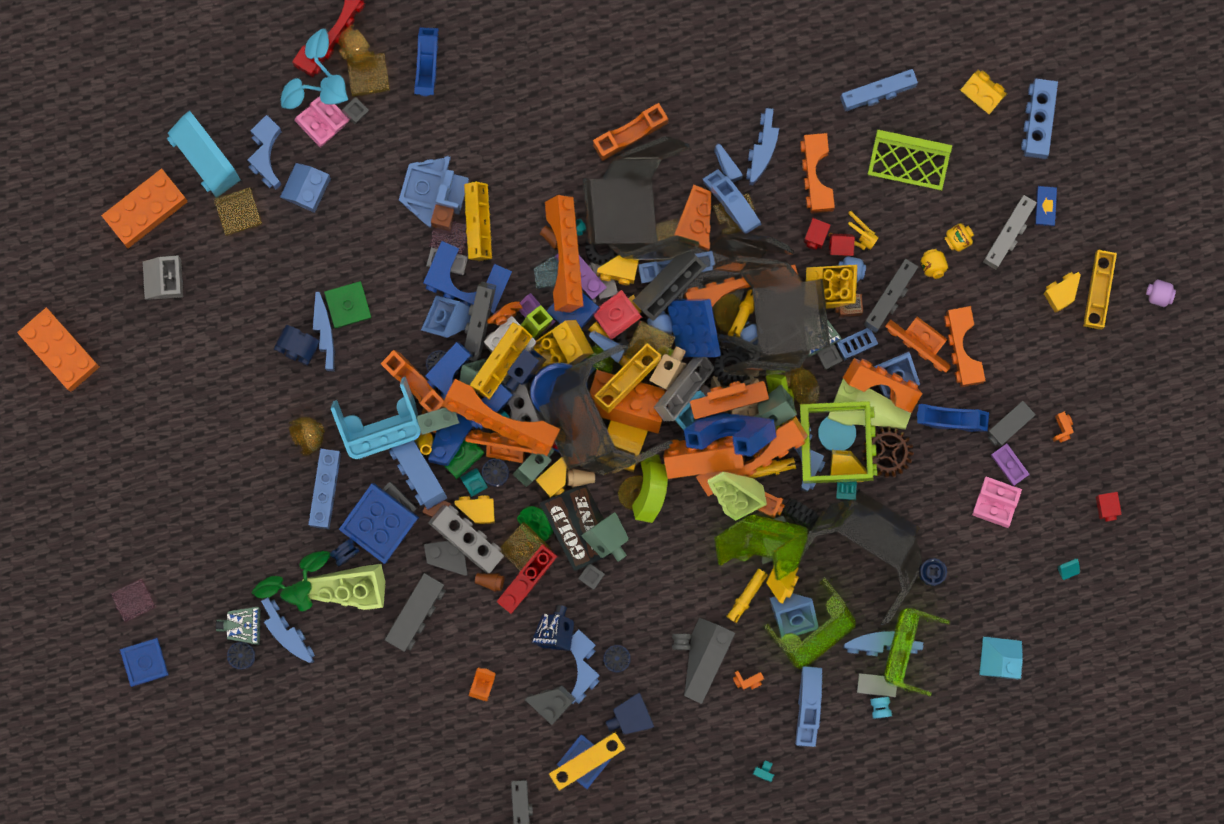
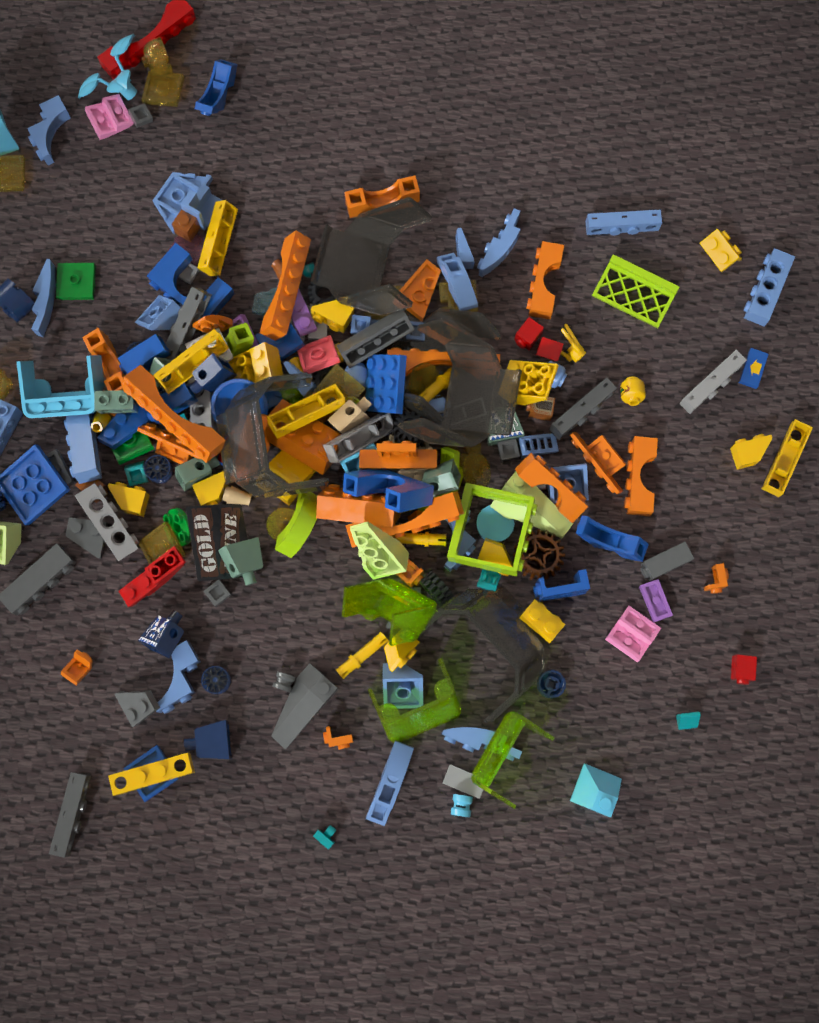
camera: 20 degrees right, 5 degrees down
(305, 187) = (75, 169): medium blue slope -> none
(492, 581) = (122, 571): dark orange cone -> none
(908, 515) = (542, 621): none -> yellow bracket
(936, 471) = (580, 587): none -> blue panel
(959, 237) = (663, 373): yellow head -> none

